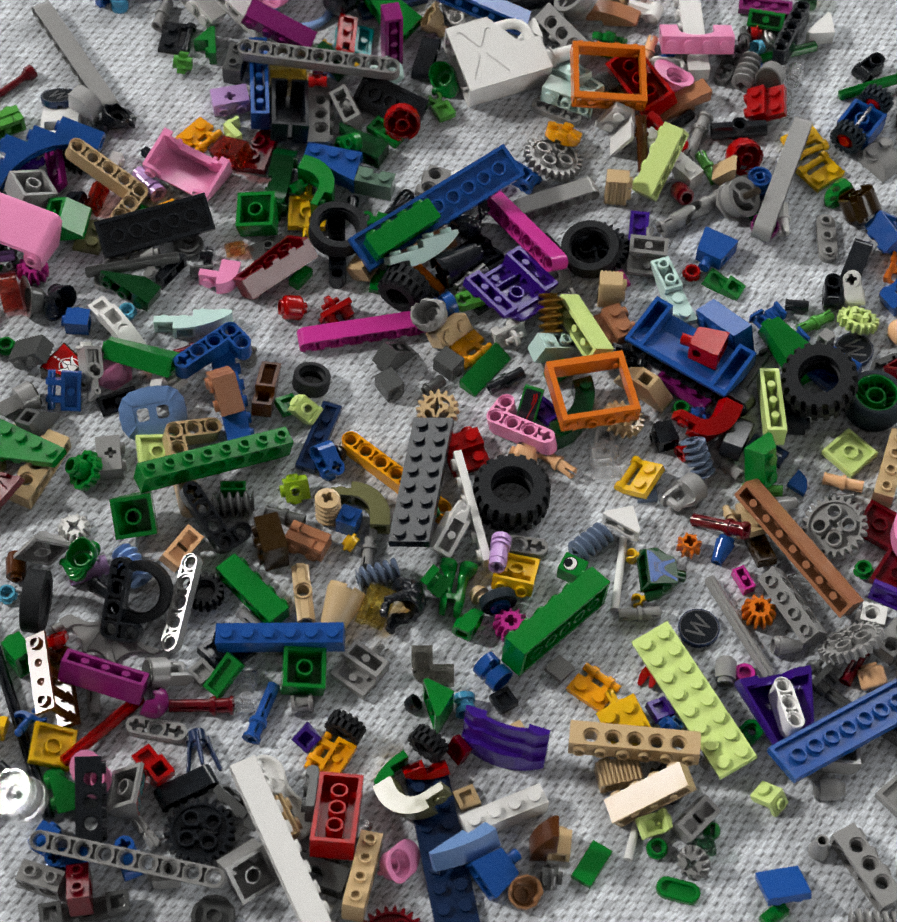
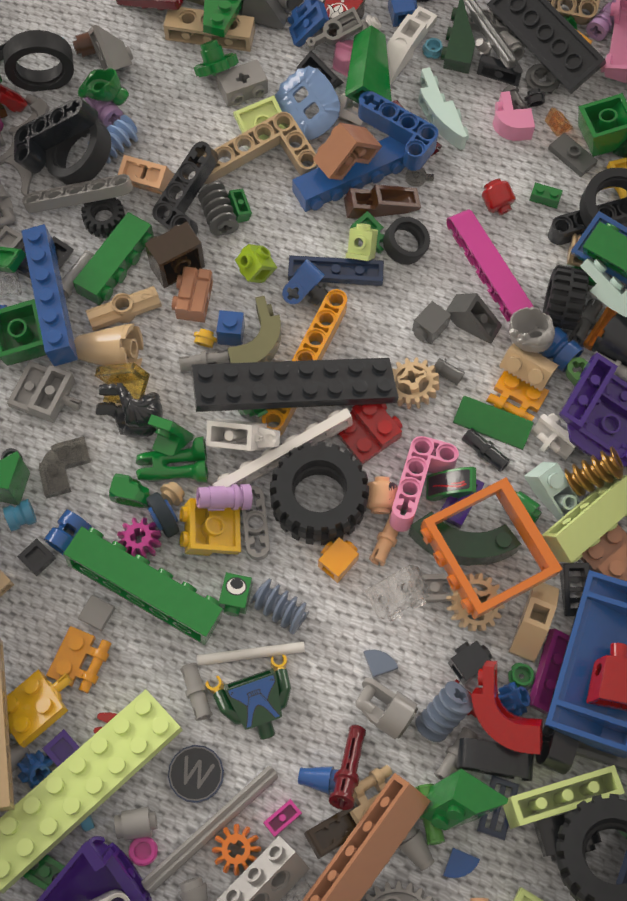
camera: 75 degrees right, 10 degrees up
(82, 523) = (154, 87): white gear -> none
(134, 515) = (170, 120): green slope -> none
(213, 459) = (256, 167): green brick -> none
(275, 265) = (542, 160): wedge -> none
(286, 515) = (221, 265): dark grey pin -> none
(327, 506) = (236, 295): tan piece -> none
(333, 309) = (519, 247): red hips -> none
(377, 574) = (166, 375): sand blue piece -> none
(448, 363) = (482, 377): dark grey brick -> none
(565, 496) = (338, 558): none -> light orange brick
(623, 521) = (324, 641): white slope -> none
(644, 480) = (394, 652): yellow plate -> none
(688, 545) = (309, 739): orange gear -> none

